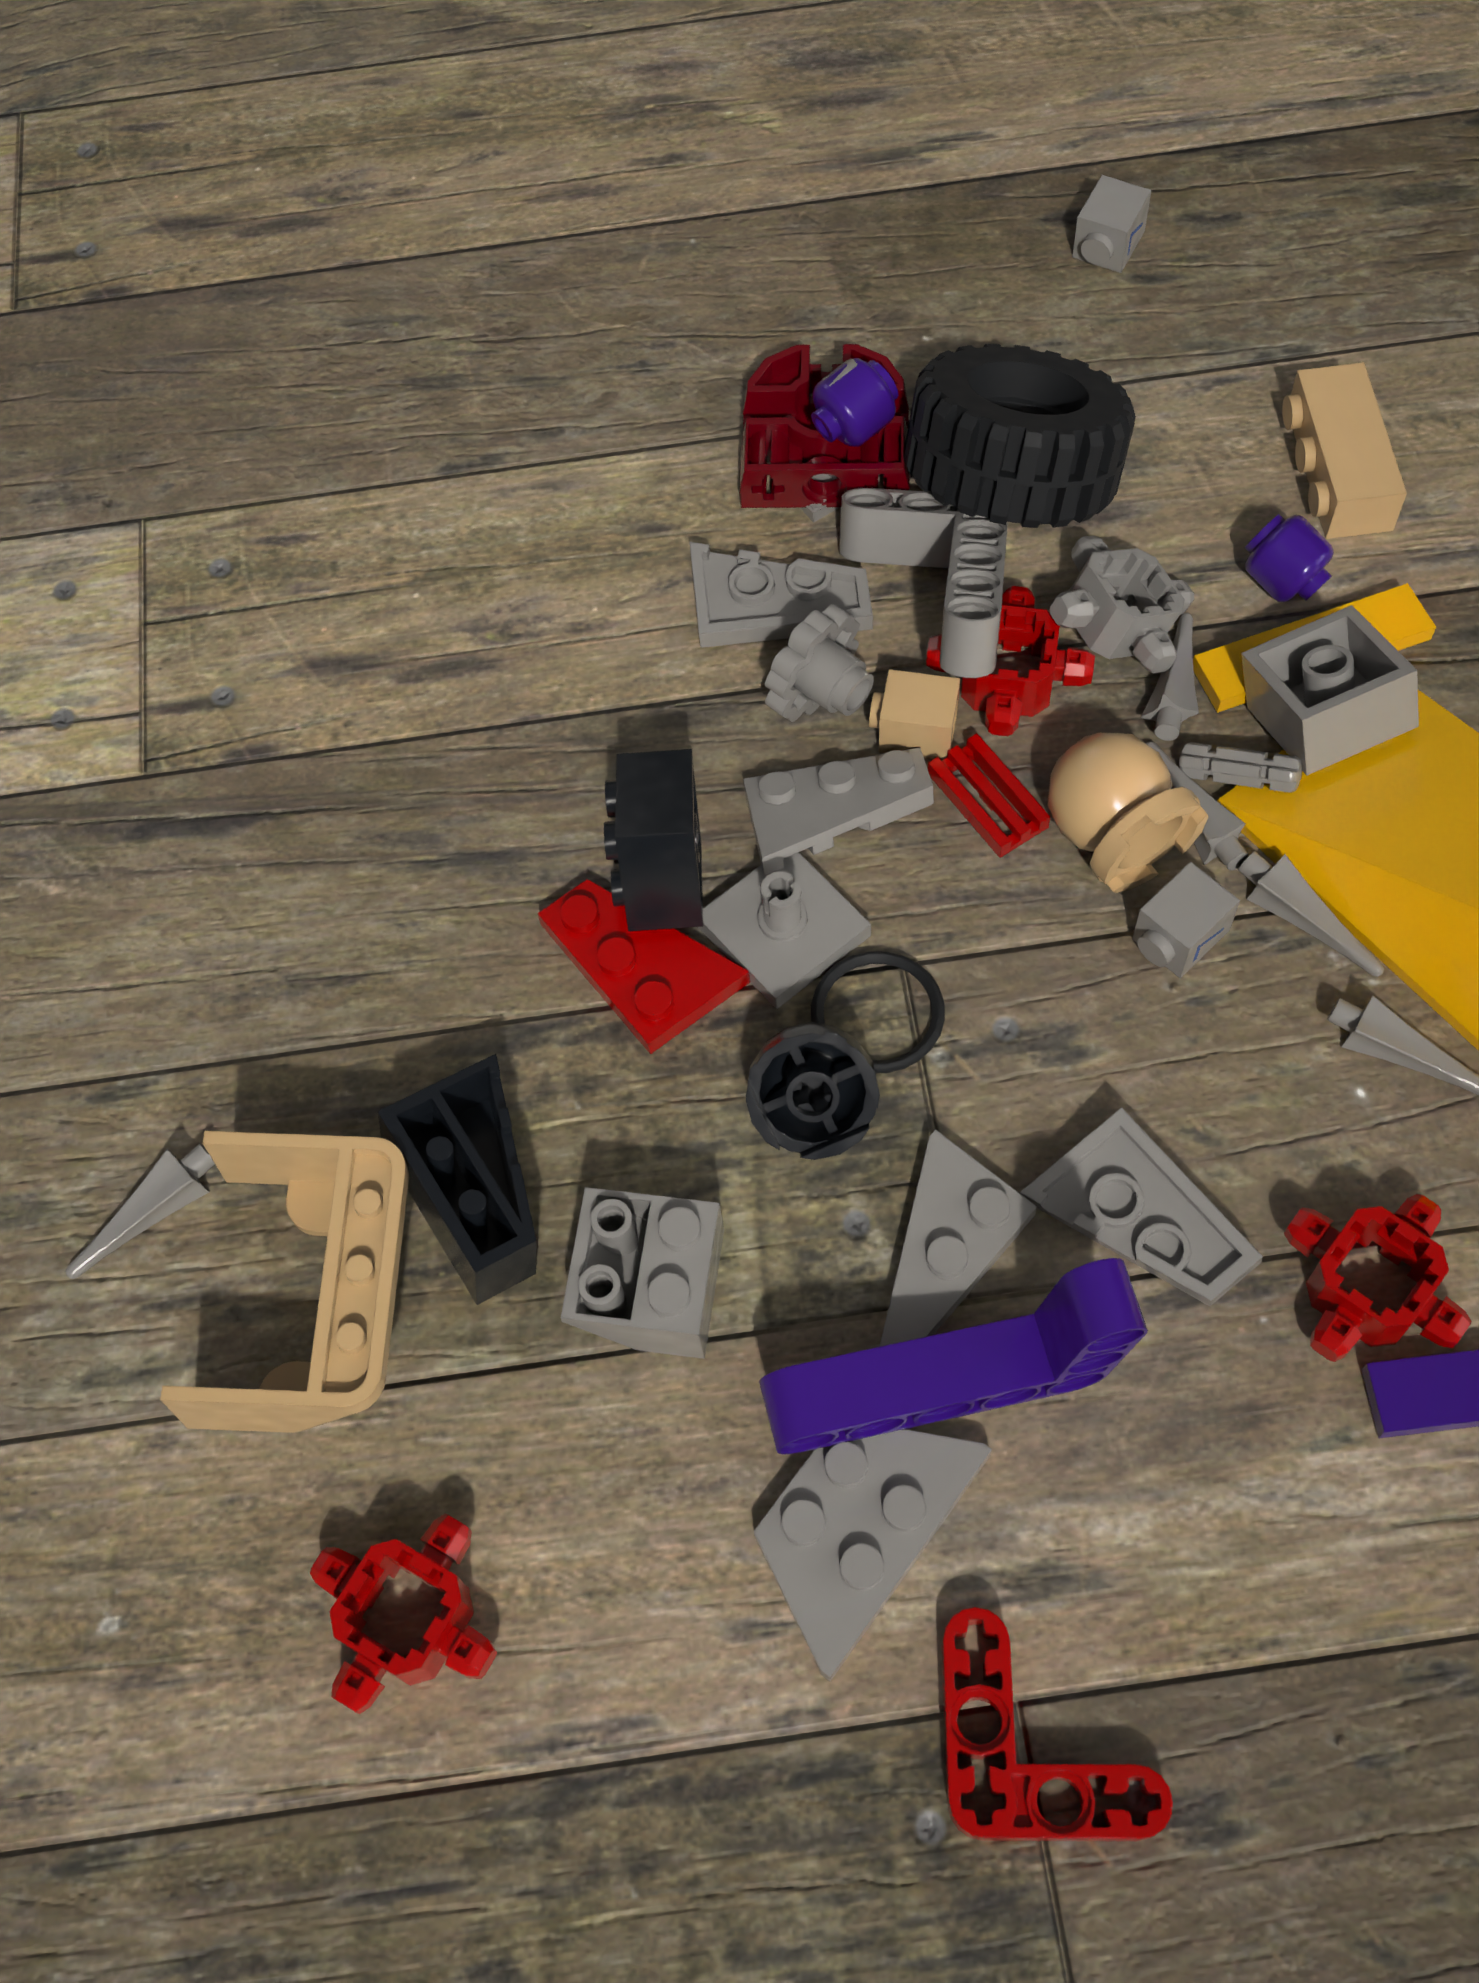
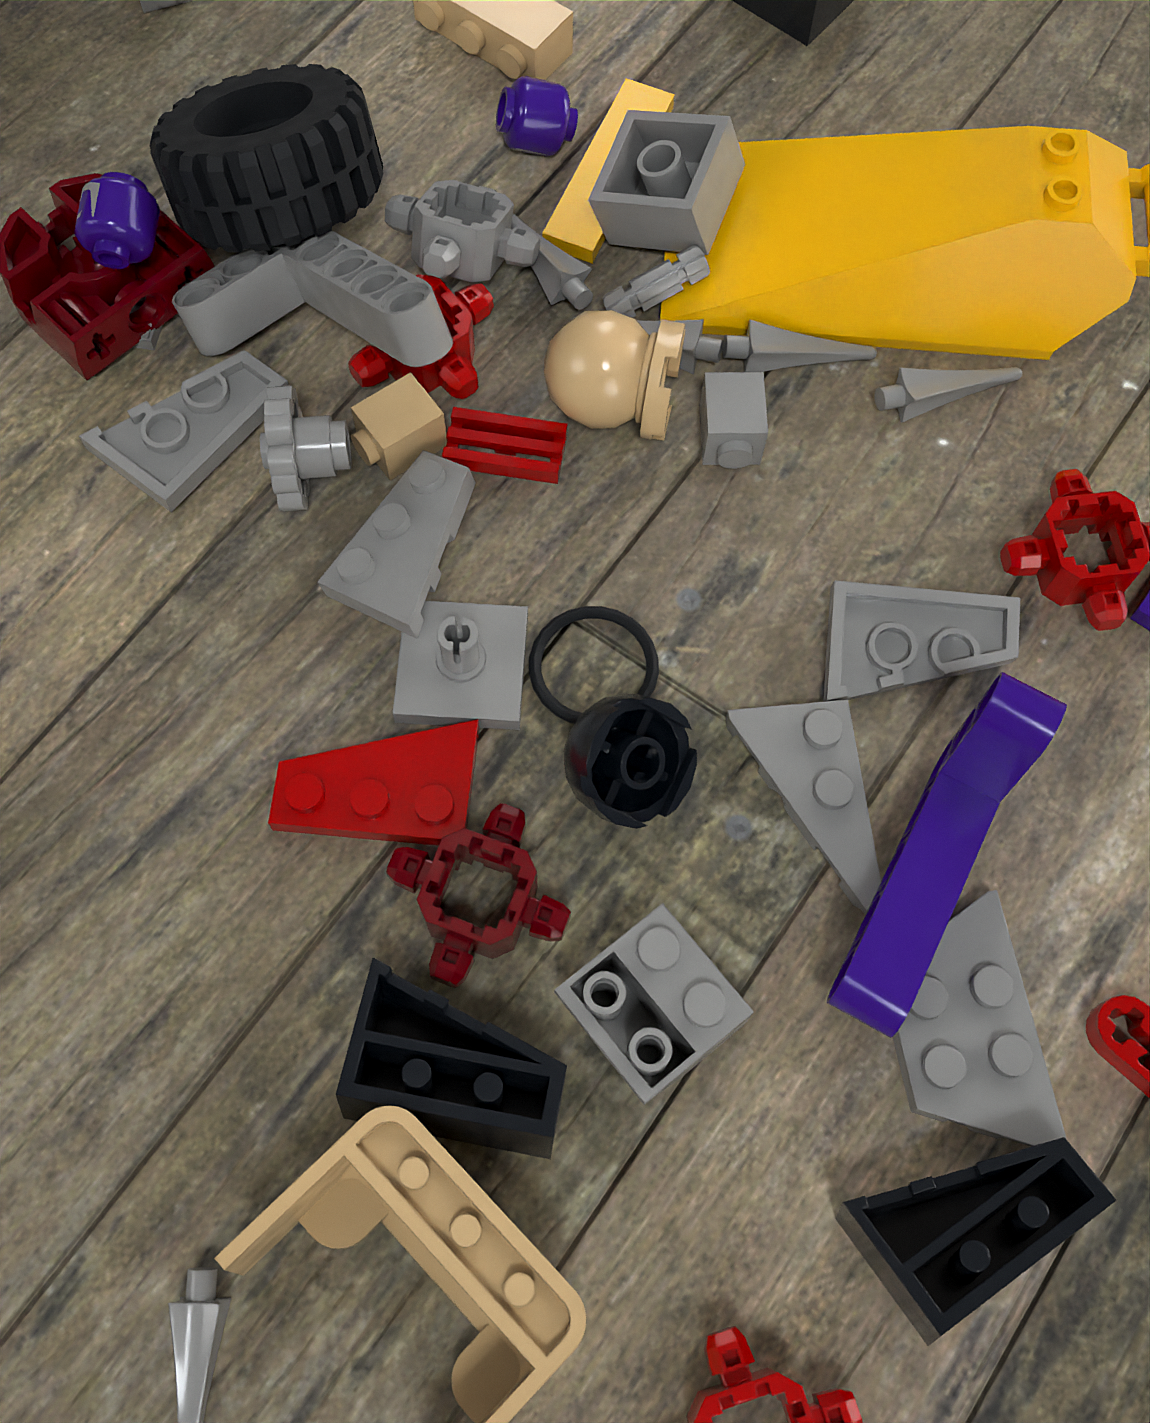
camera: 55 degrees left, 5 degrees up
(636, 1126) = (497, 850): none -> dark red piece
(655, 840) = (319, 678): black brick -> none
(689, 1643) = (973, 1231): none -> black wedge

